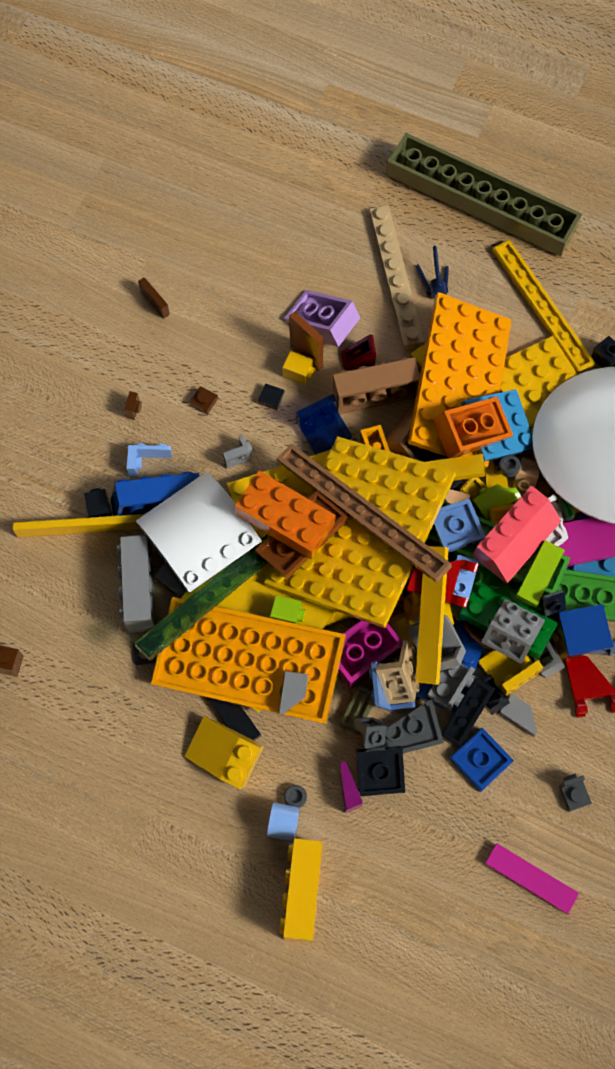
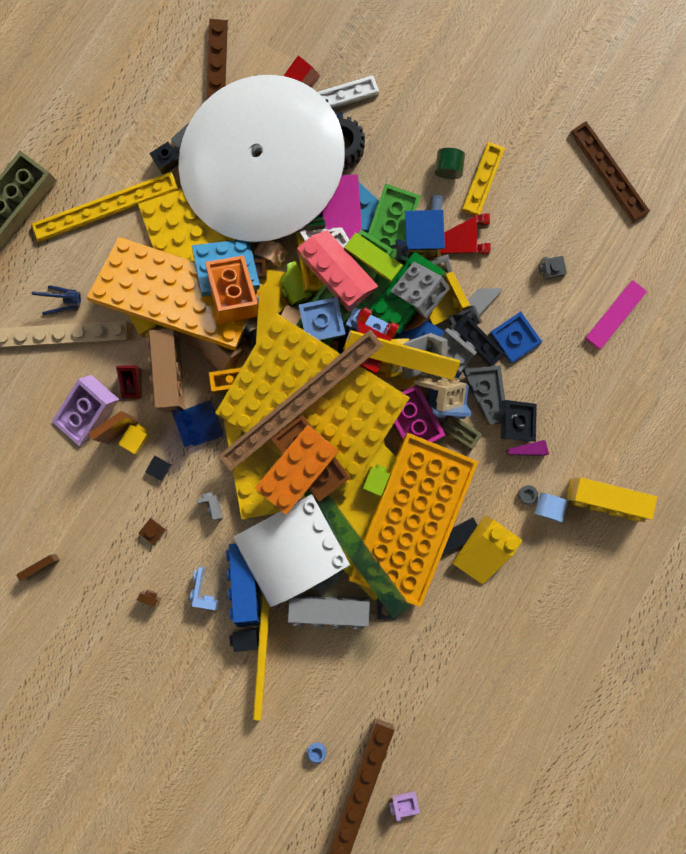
camera: 85 degrees left, 15 degrees up
(293, 690) = (448, 484): light grey tile -> none
(372, 731) = (484, 423): dark grey bracket -> none
(509, 466) = (264, 265): dark grey tile -> none

